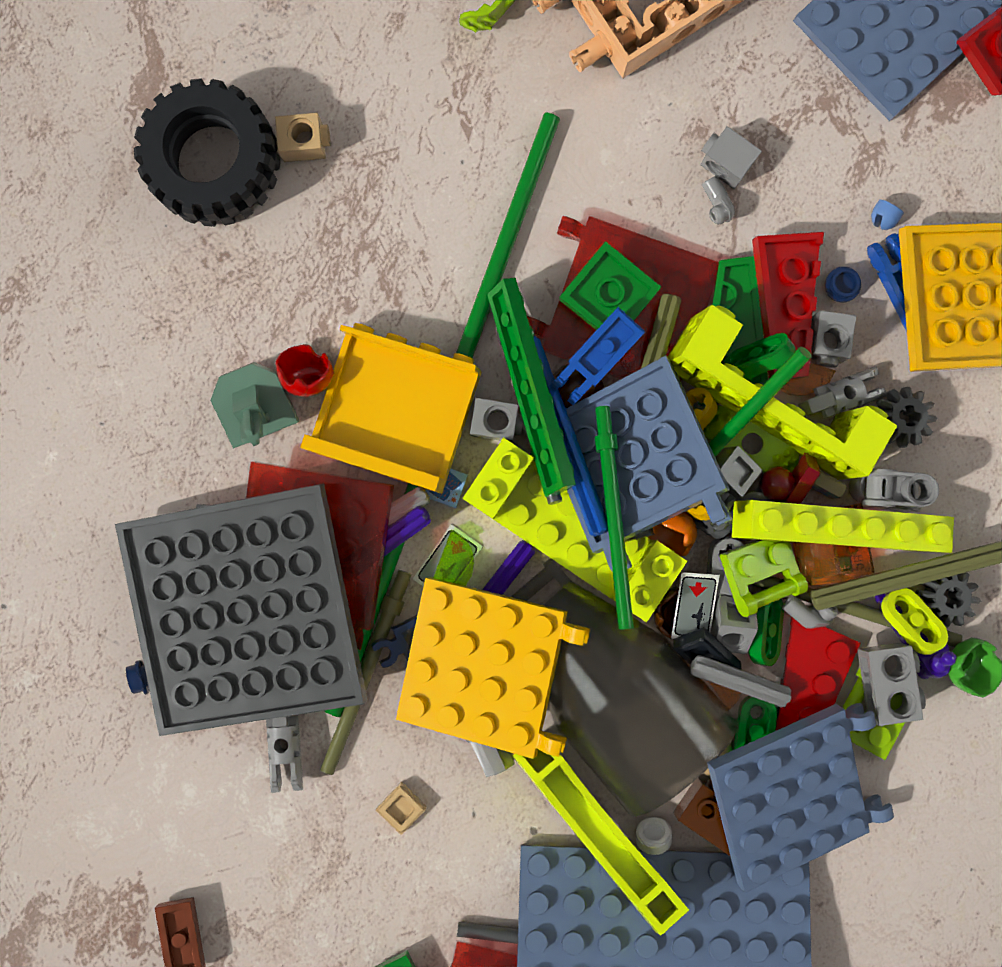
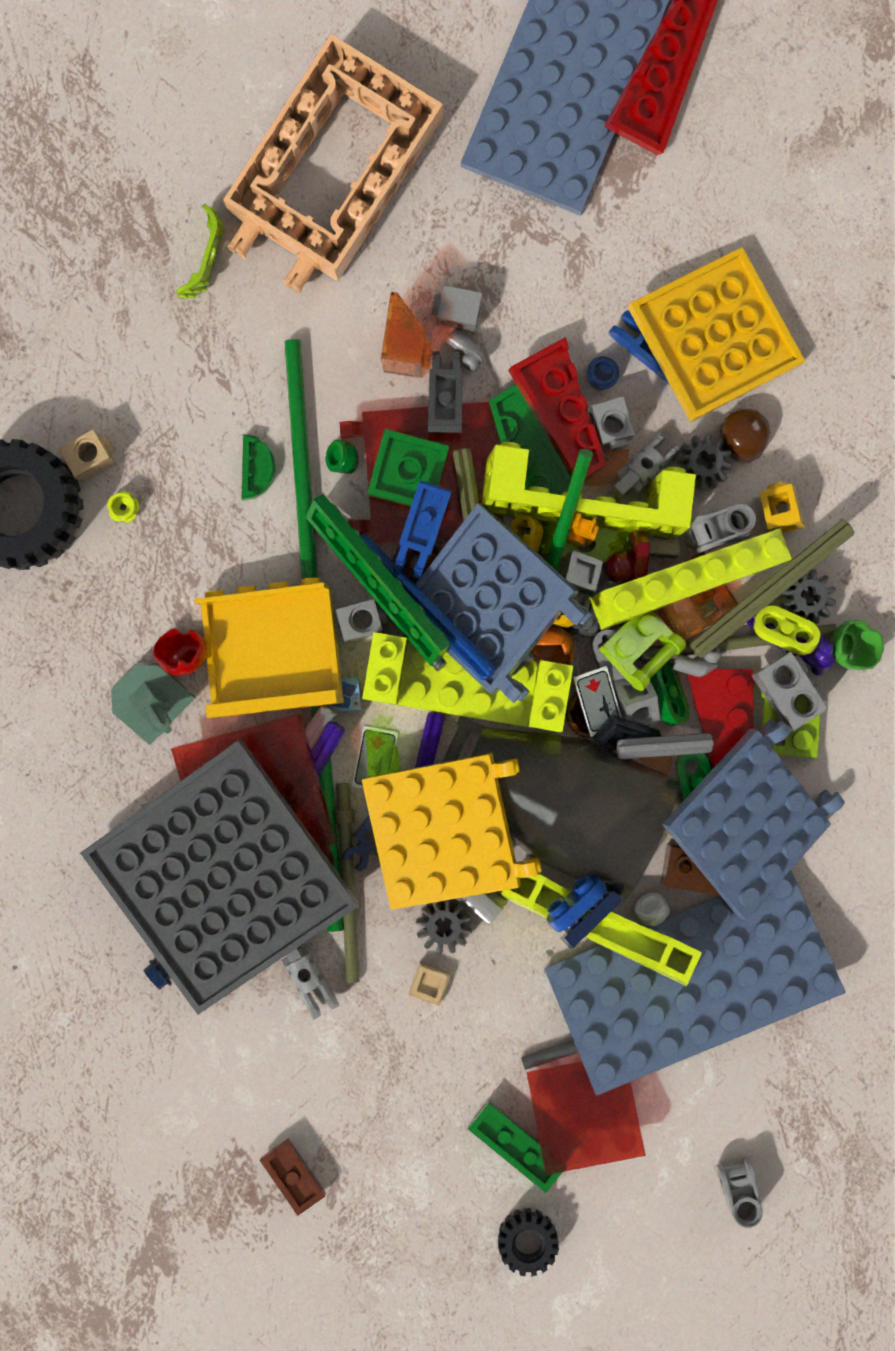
camera: 20 degrees left, 0 degrees up
(309, 195) = (118, 499): none -> neon yellow plate
(436, 771) = (455, 925): none -> dark grey gear
(461, 225) = (257, 468): none -> green tile
(549, 251) = (342, 457): none -> green tile
(575, 826) = (590, 919): none -> dark blue plate
(588, 799) = (585, 894): none -> blue plate
(606, 445) = (463, 600): green bar -> none
(662, 168) = (405, 341): none -> clear orange slope
(679, 236) = (445, 395): none -> dark grey hinge
(758, 431) = (582, 531): none -> light orange plate
(762, 355) = (557, 467): green plate -> none
(886, 215) = (612, 298): medium blue hinge -> none
(957, 408) = (745, 434): none -> reddish brown hair
(967, 483) = (772, 498): none -> yellow brick

